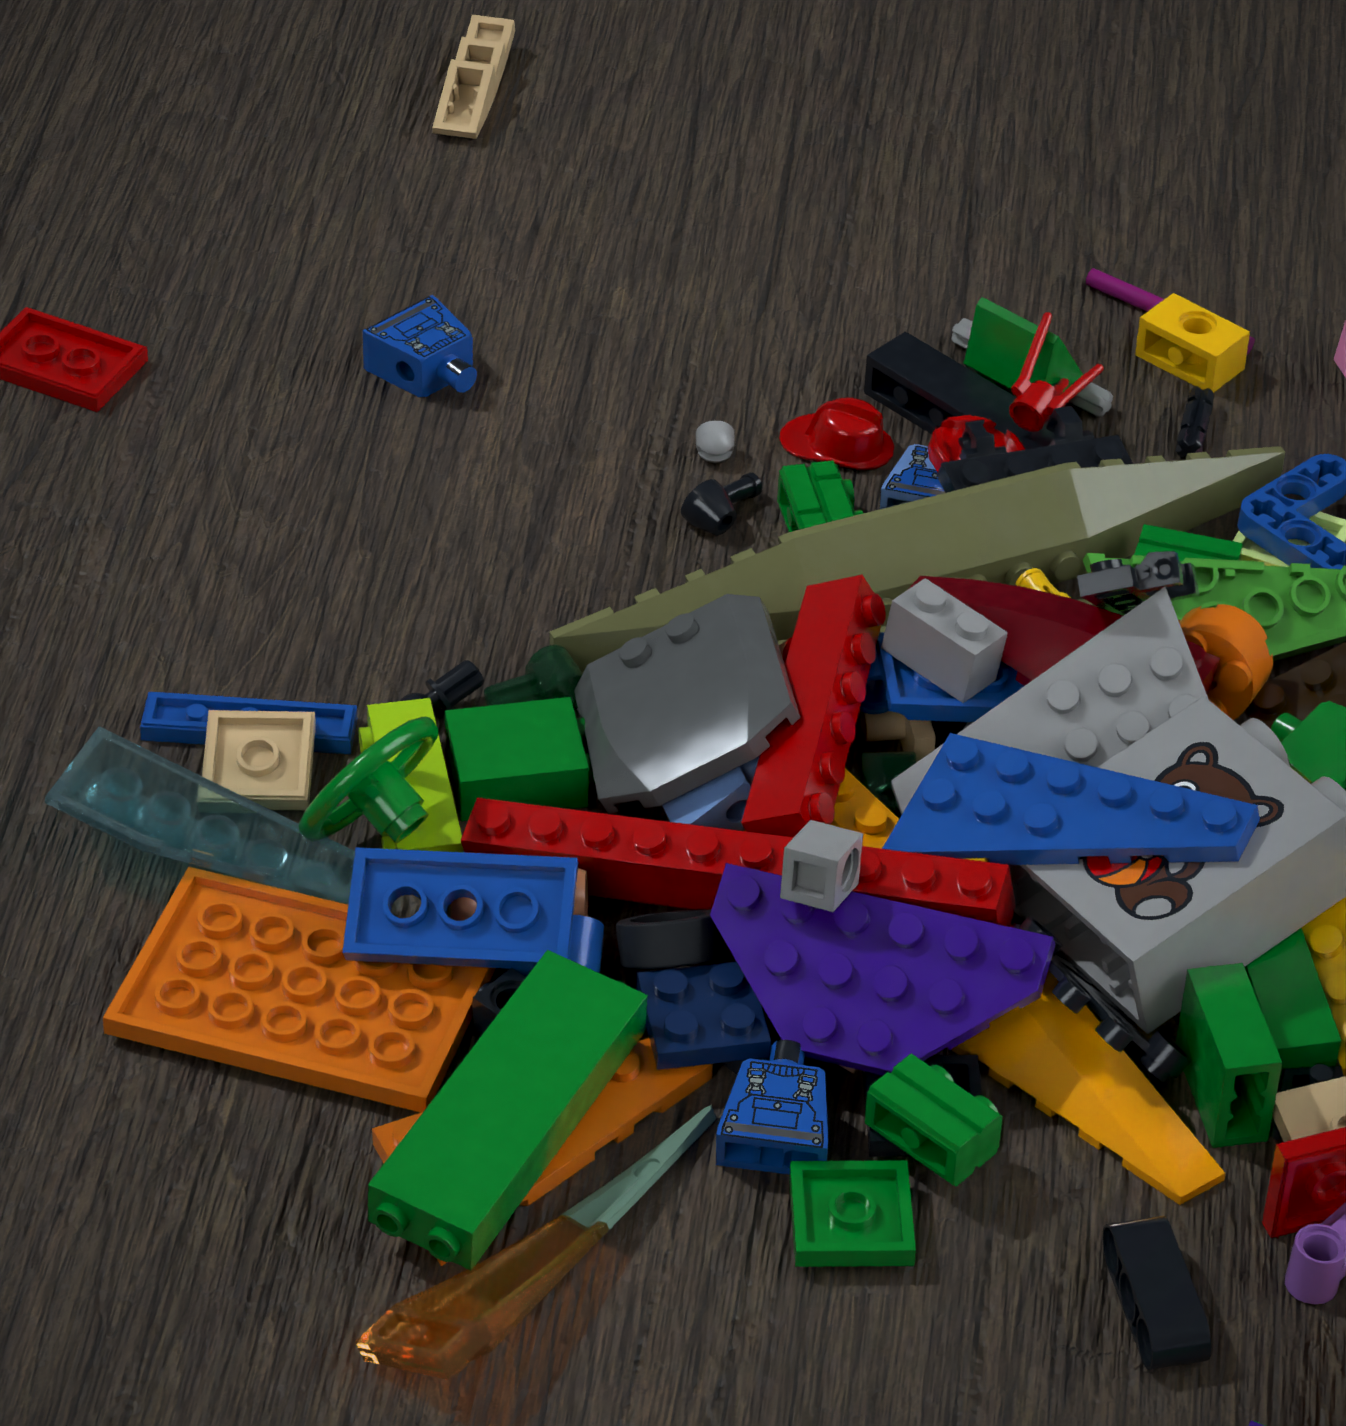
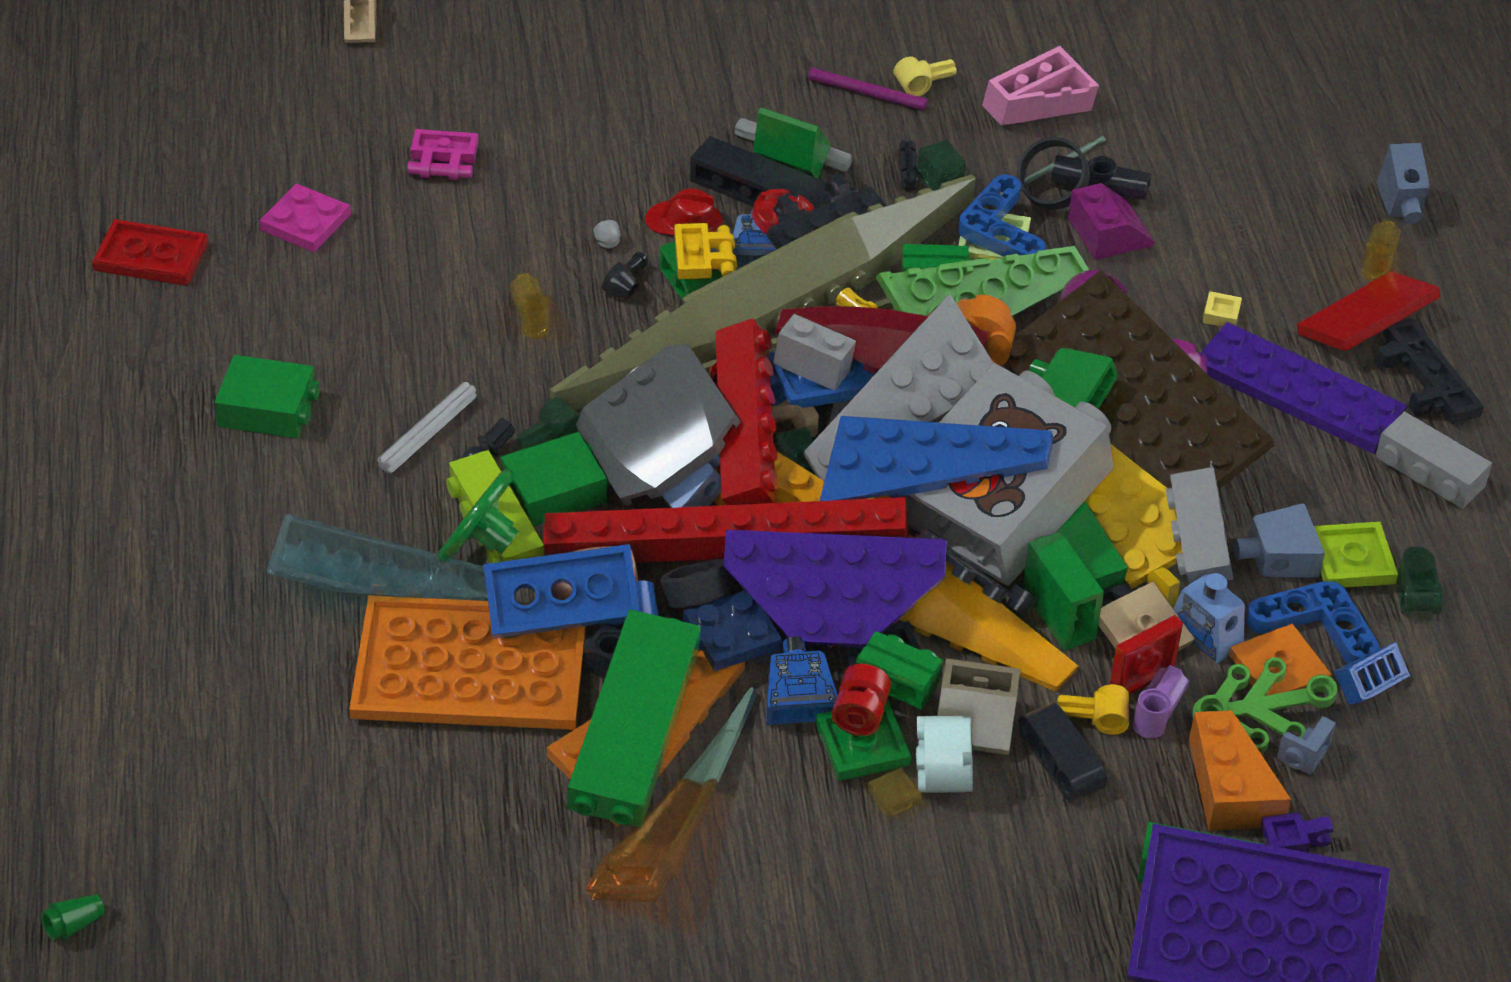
camera: 15 degrees left, 5 degrees up
(145, 573) = (266, 396): none -> green brick
(185, 718) = (369, 487): blue tile -> none
(262, 755) = (388, 509): tan plate -> none
(292, 349) = (305, 217): none -> dark pink plate
(362, 655) = (426, 427): none -> light grey axle
(421, 349) = (394, 203): blue torso -> none
(520, 287) = (443, 147): none -> dark pink plate
(568, 519) = (531, 306): none -> clear yellow piece
(821, 865) = (791, 521): light grey brick -> none
(823, 479) = (694, 254): none -> yellow plate
(859, 1150) = (861, 699): none -> red wheel
(876, 1300) = (894, 792): none -> clear yellow tile
(966, 1256) = (944, 754): none -> light aqua brick
(1037, 400) = (815, 171): red plant -> none
(1041, 1198) = (987, 696): none -> dark tan slope
(1123, 587) = (920, 295): black hinge -> none
(1192, 343) = (891, 110): yellow brick -> none
(1240, 424) = (940, 164): none -> clear green brick
(1247, 1243) = (1107, 708): none -> yellow axle
(1250, 302) = (917, 75): none -> light yellow axle

